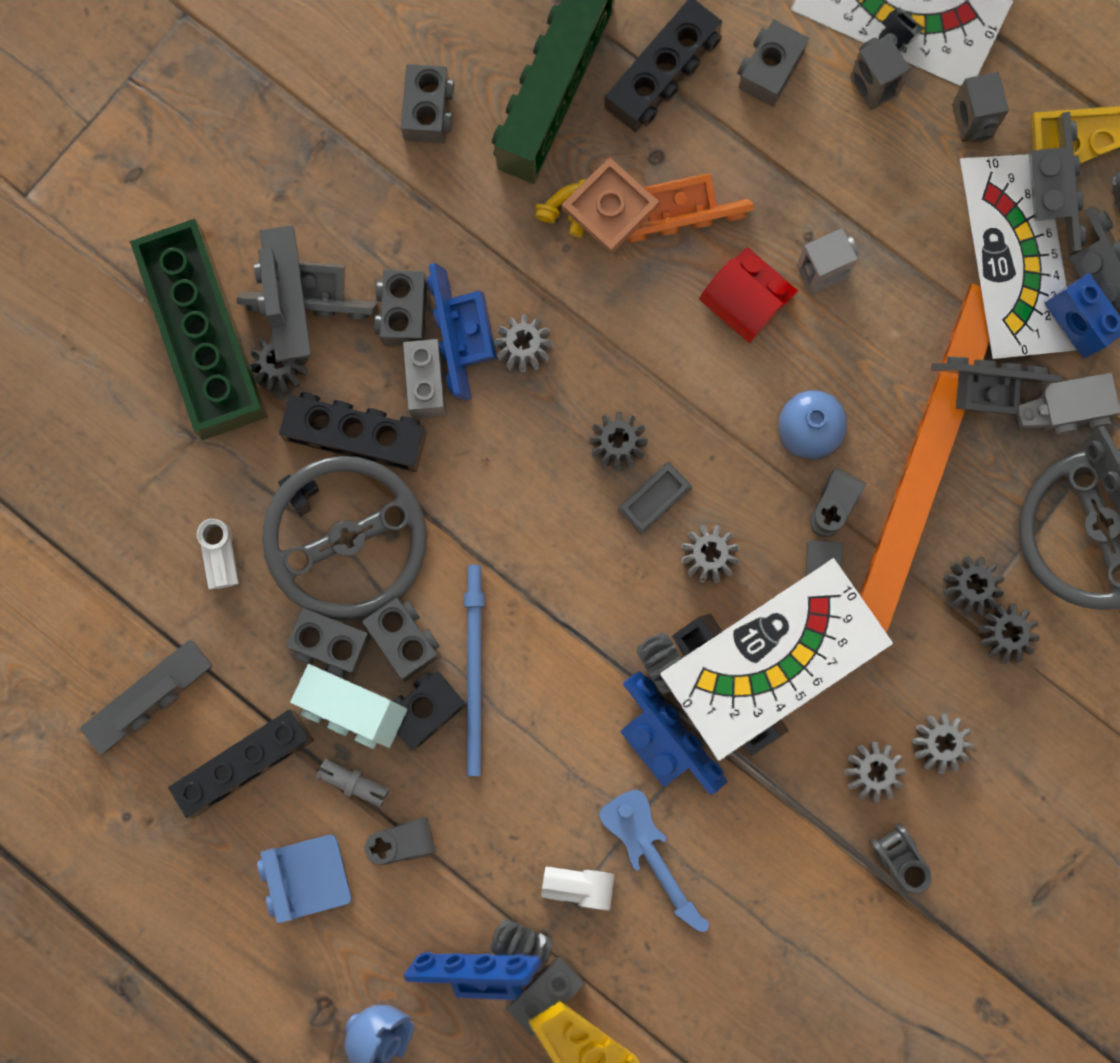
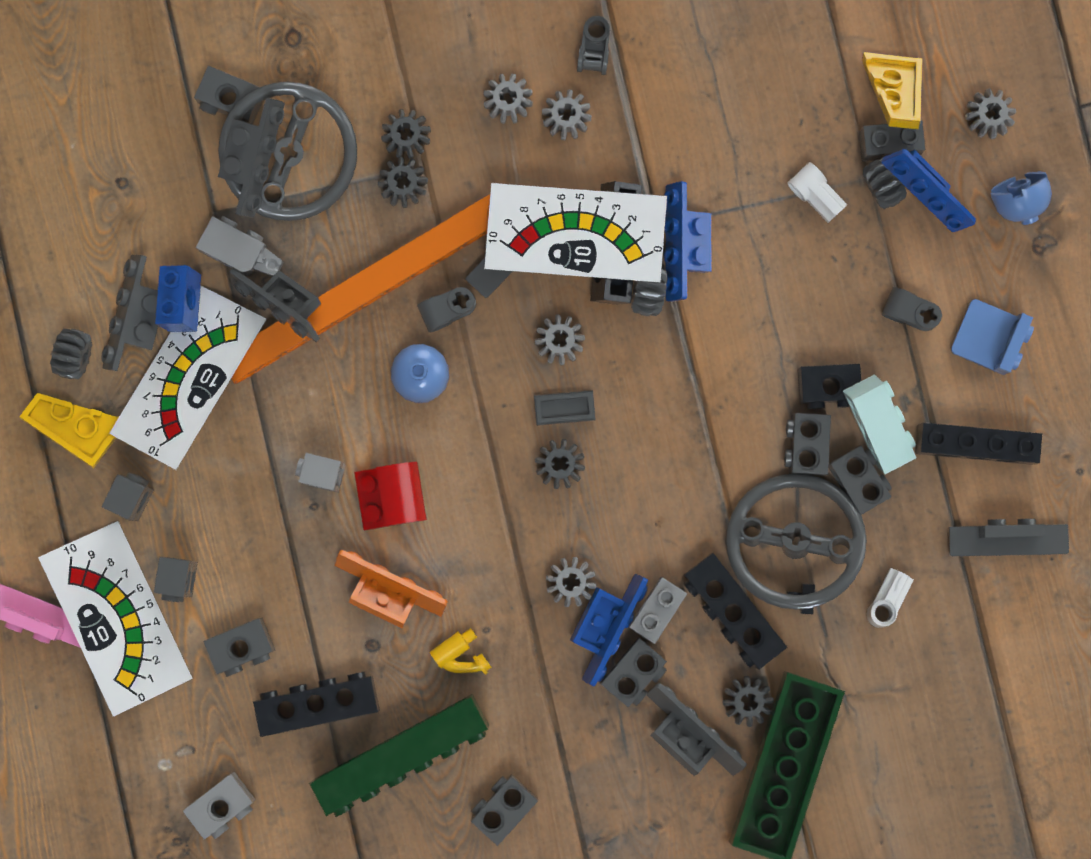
camera: 150 degrees left, 5 degrees up
(282, 293) = (710, 743): dark grey bracket -> none
(353, 783) = (913, 375): light grey pin -> none
(474, 601) = (740, 433): medium blue bar -> none
(610, 205) = (437, 628): nougat tile -> none
(631, 821) = (749, 209): medium blue piece -> none
(902, 26) = (131, 600): black tile -> none
(1055, 183) = (123, 404): dark grey bracket -> none

